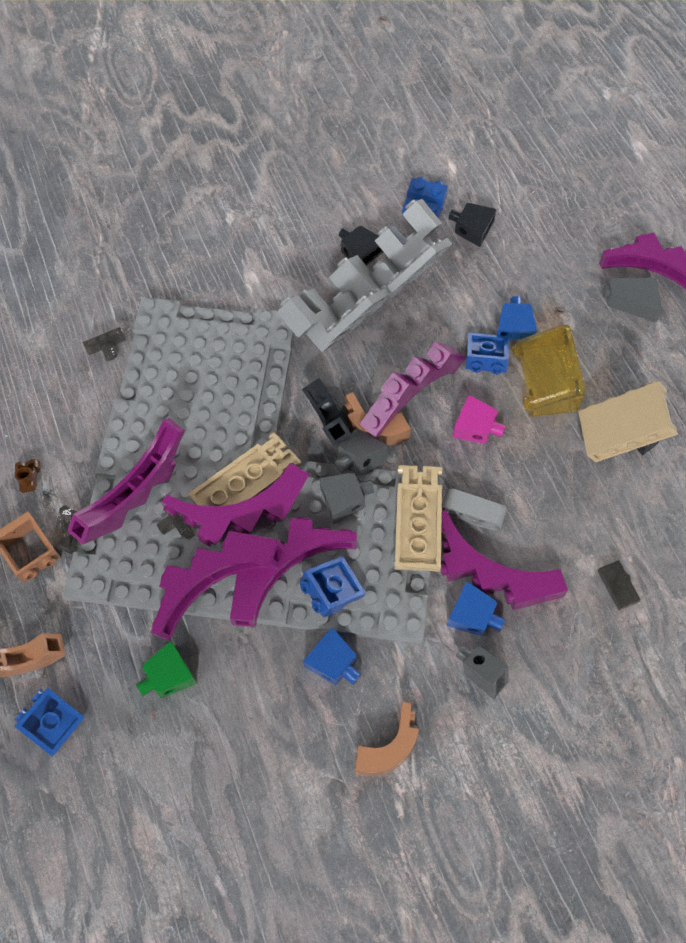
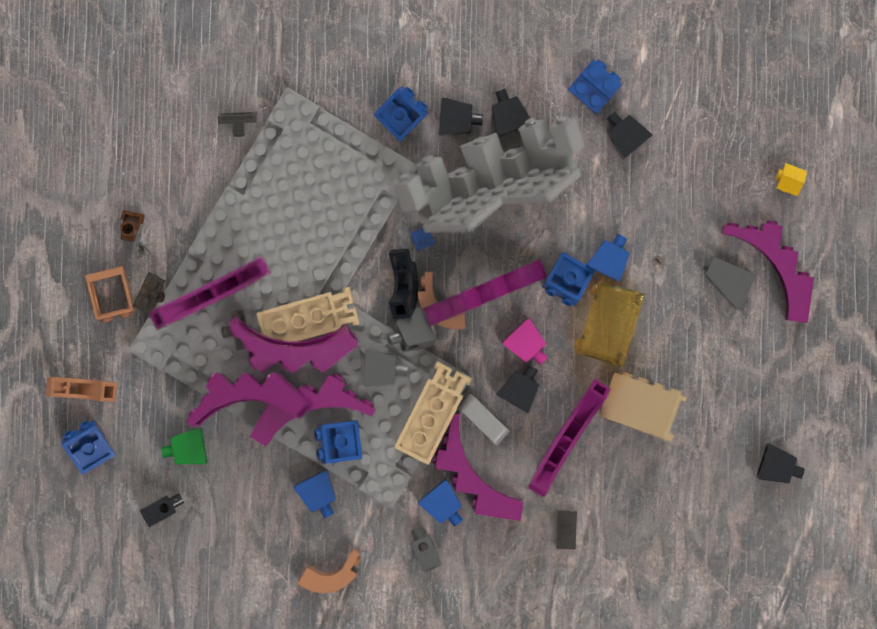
camera: 25 degrees right, 25 degrees up
(157, 756) = (153, 514): none -> black torso
(260, 280) = (401, 112): none -> blue plate
(313, 265) = (457, 117): none -> black torso
(329, 375) = (422, 239): none -> blue tile
(495, 467) = (520, 389): none -> black torso
(567, 492) = (567, 437): none -> magenta arch
(636, 200) = (790, 179): none -> yellow brick

